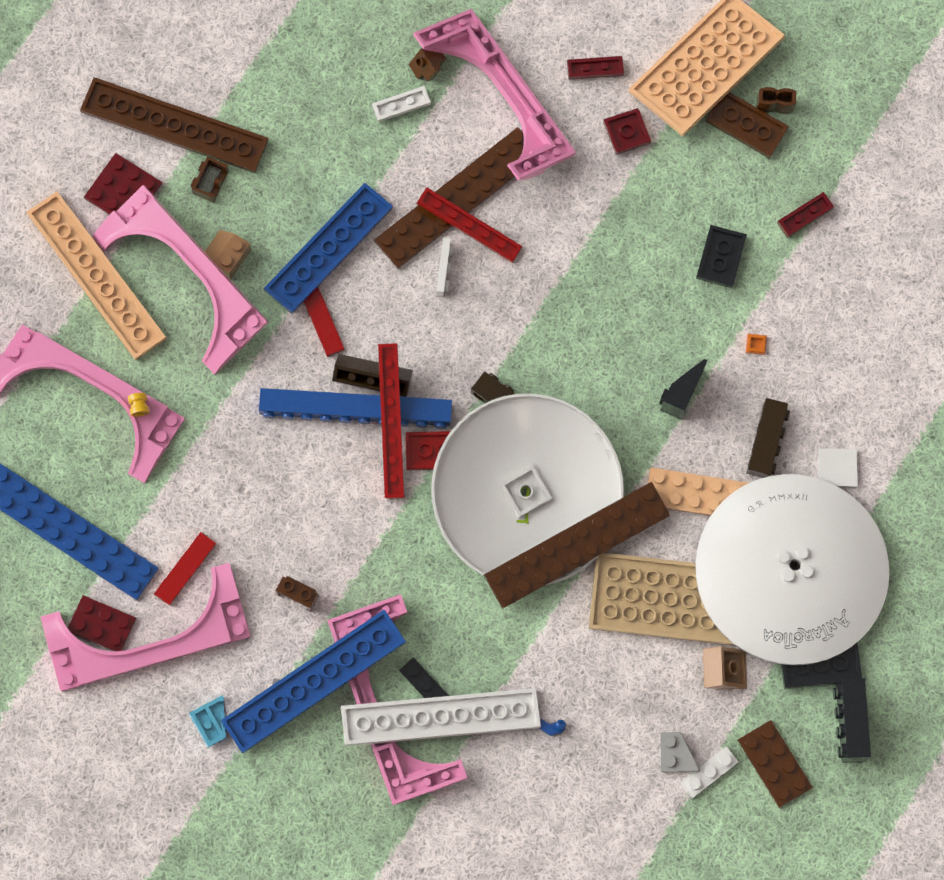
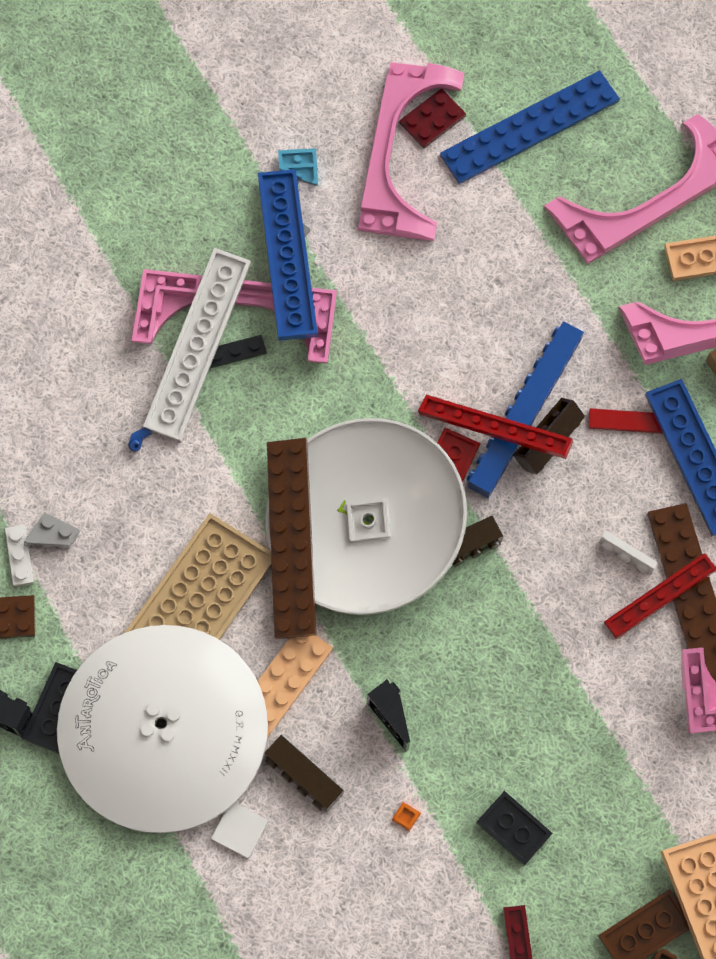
camera: 120 degrees right, 5 degrees down
(138, 404) = (617, 221): yellow wheel -> none
(185, 568) = (447, 204): red tile -> none
(297, 592) = (375, 280): reddish brown window -> none
(627, 131) = (692, 801): dark red plate -> none
(724, 668) = (103, 615): medium nougat slope -> none

